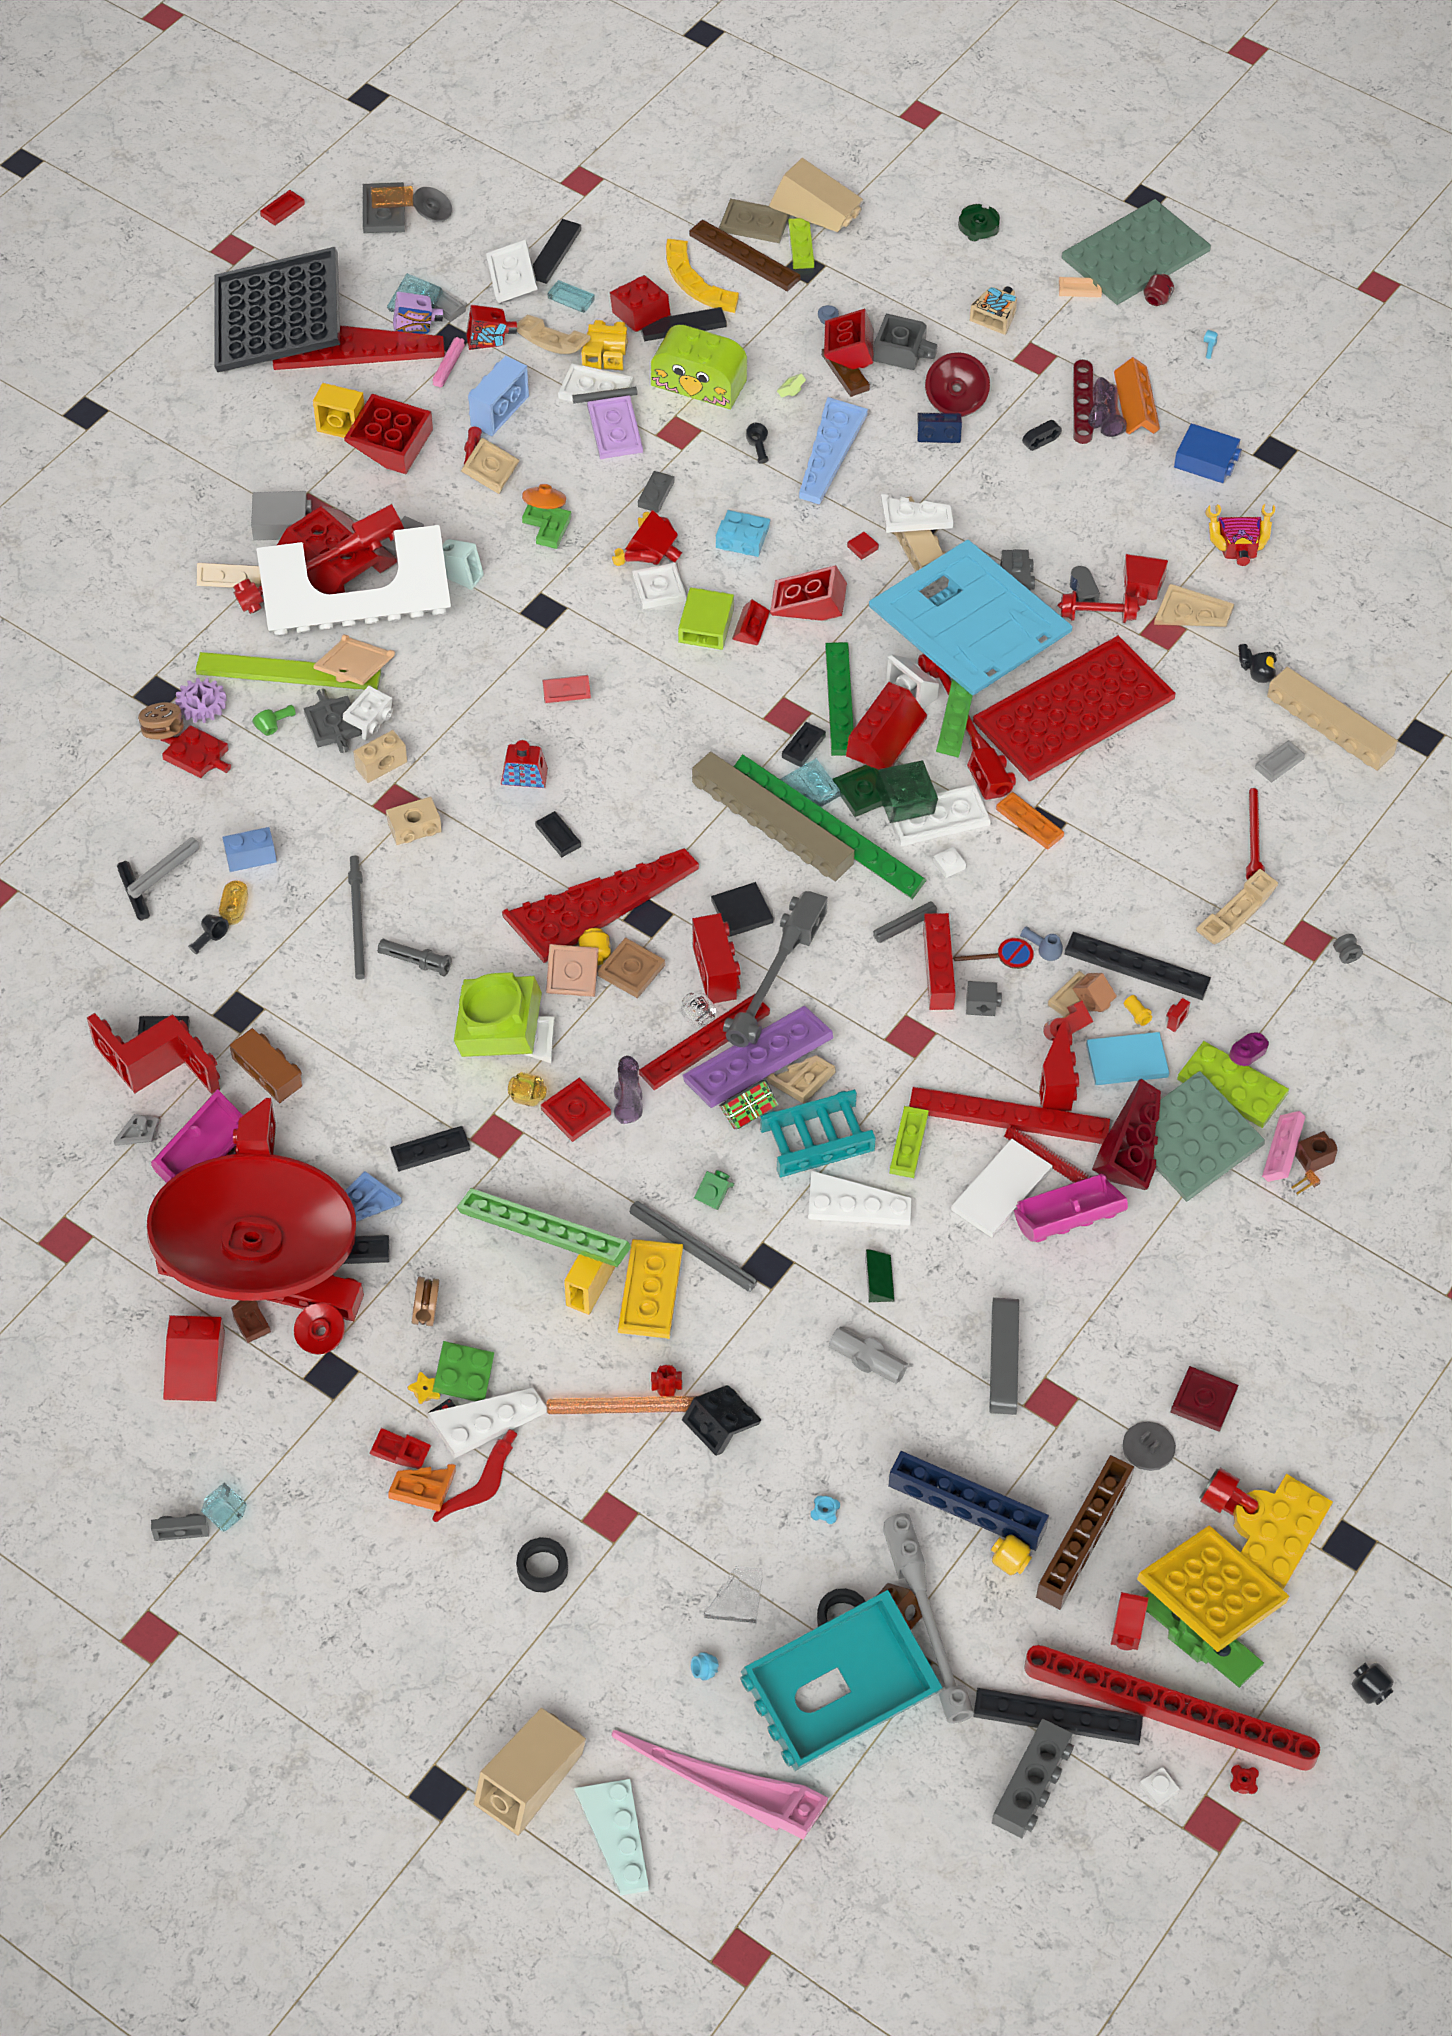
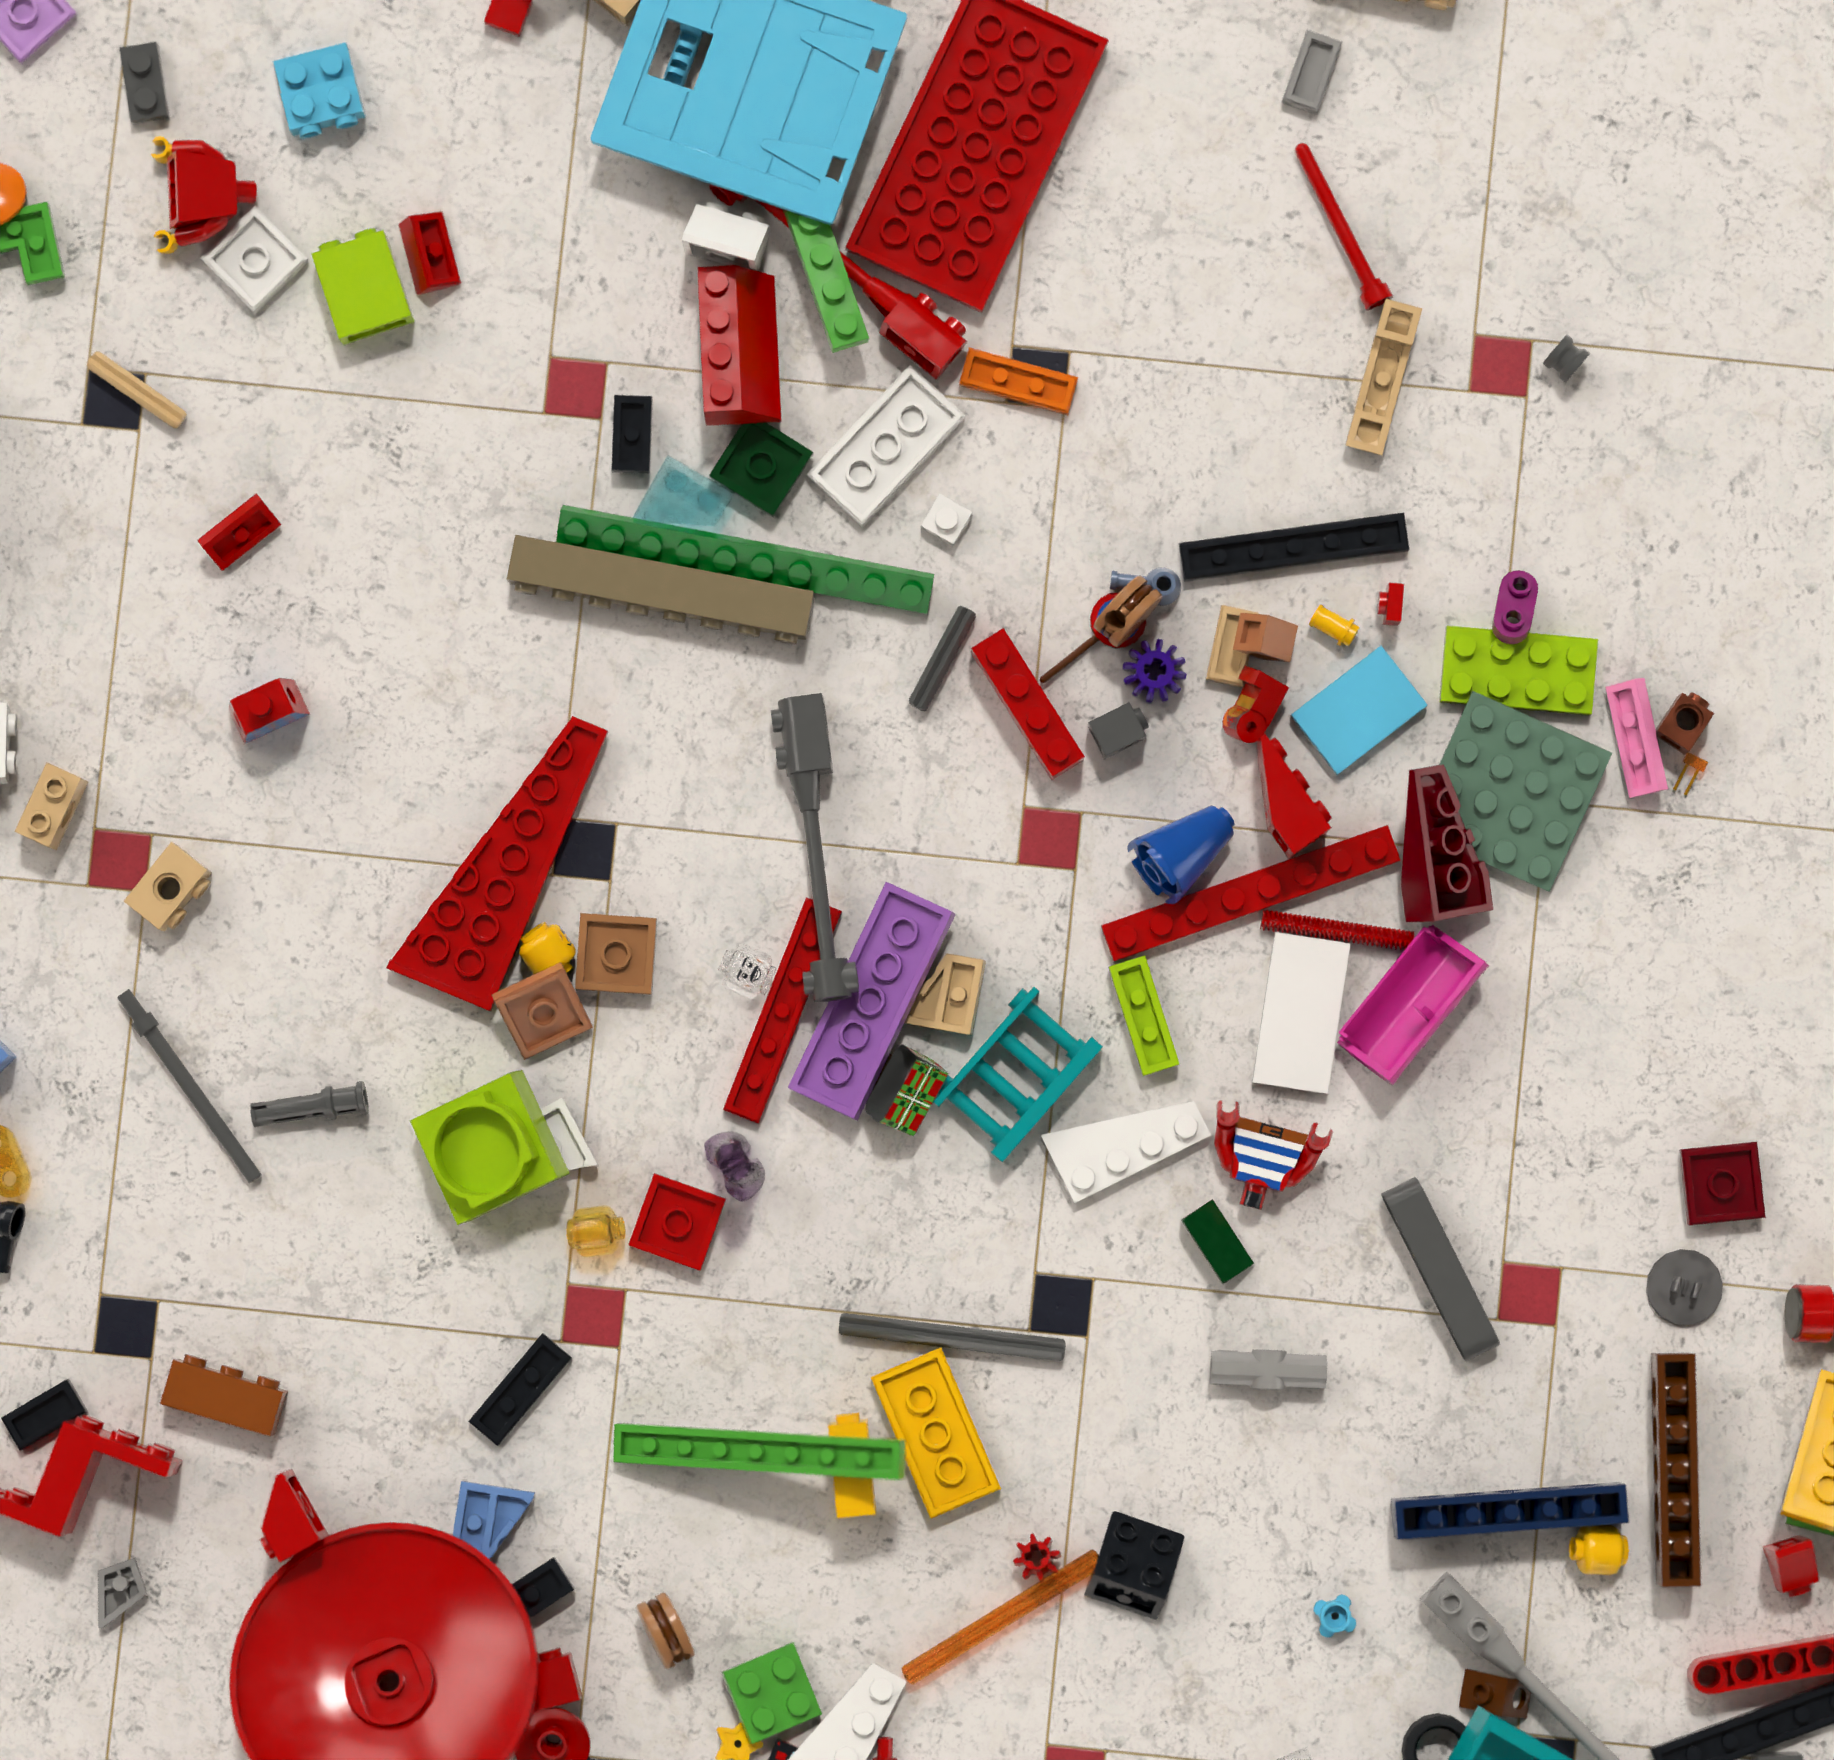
camera: 25 degrees left, 30 degrees up
(201, 1138) = (222, 1566): dark pink container -> none
(558, 609) = (136, 389): none -> tan axle
(558, 834) = (378, 785): black tile -> none
(713, 1188) = (930, 1236): bracket -> none
(715, 958) = (728, 883): red brick -> none
(742, 908) = (707, 765): black tile -> none
(810, 595) = (487, 158): red slope -> none
(839, 696) = (633, 316): green plate -> none
(906, 791) = (830, 449): clear green brick -> none
(935, 1242) = (1264, 1154): none -> torso
(981, 1068) = (1180, 852): none -> blue cone
(1021, 981) = (1145, 661): none -> dark purple gear
(1023, 940) = (1128, 611): none -> medium nougat head

